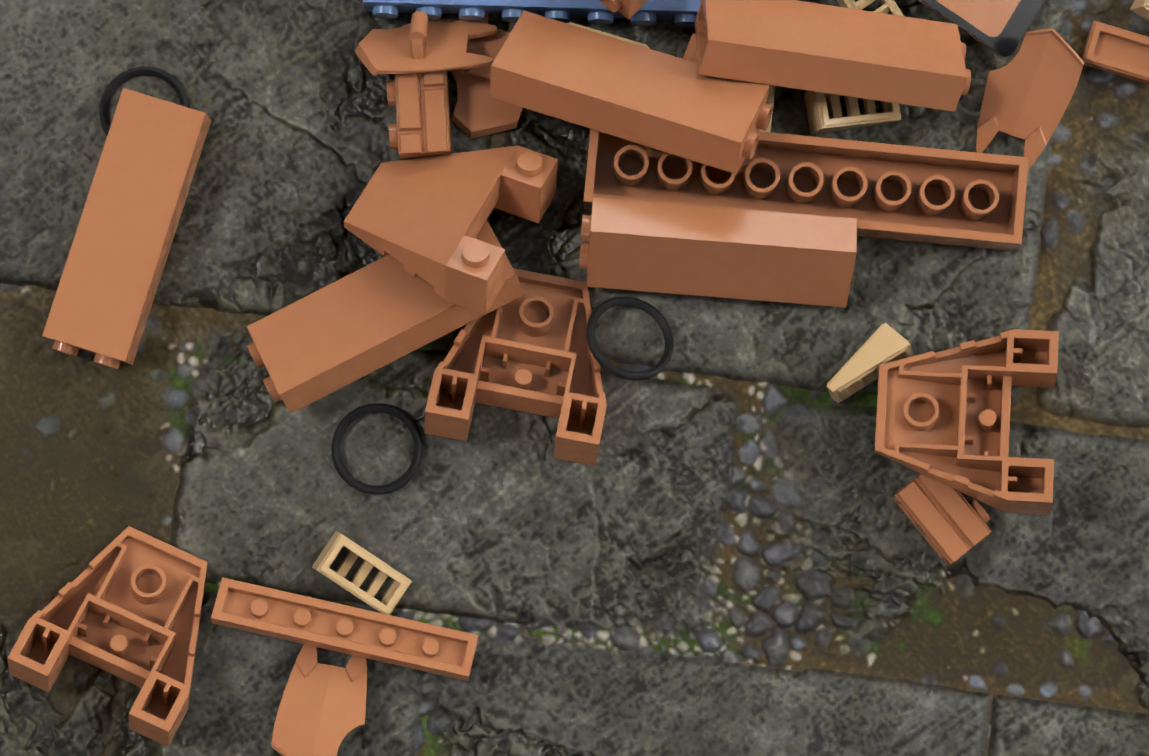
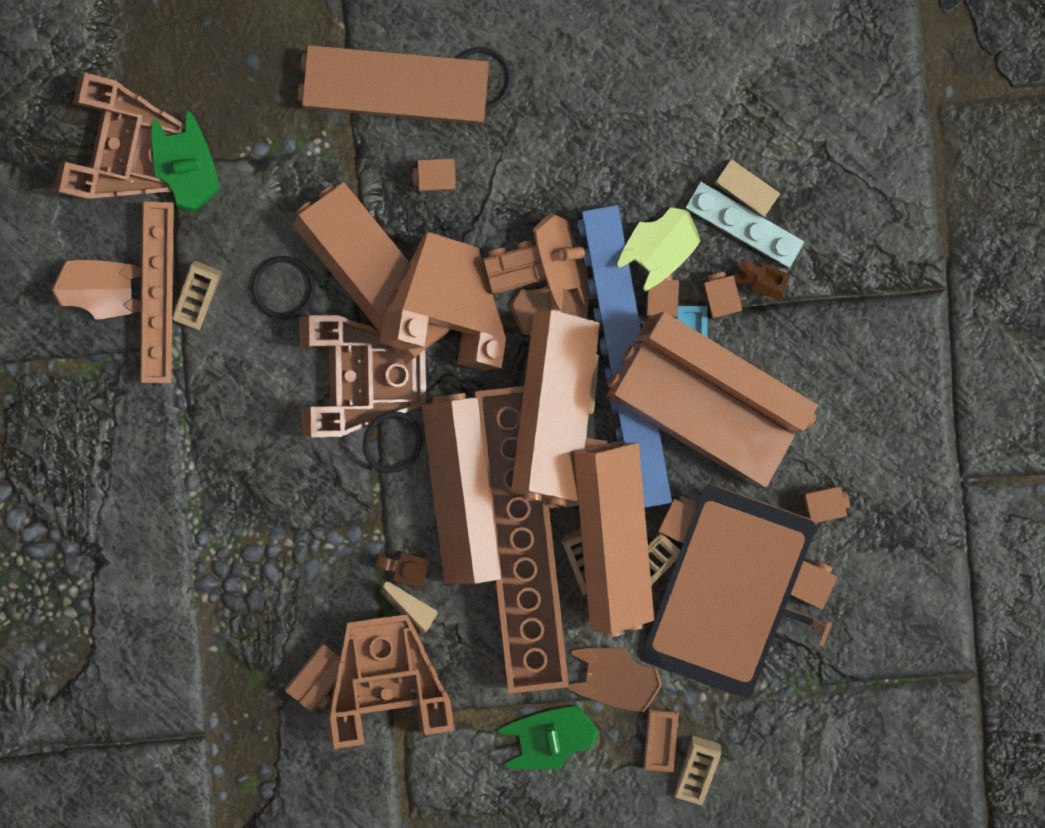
camera: 75 degrees right, 5 degrees up
(171, 549) = (185, 164): none -> green shield
(267, 198) = (435, 176): none -> nougat brick
(814, 357) = (408, 569): none -> reddish brown plate
(1094, 206) = (551, 737): none -> green shield

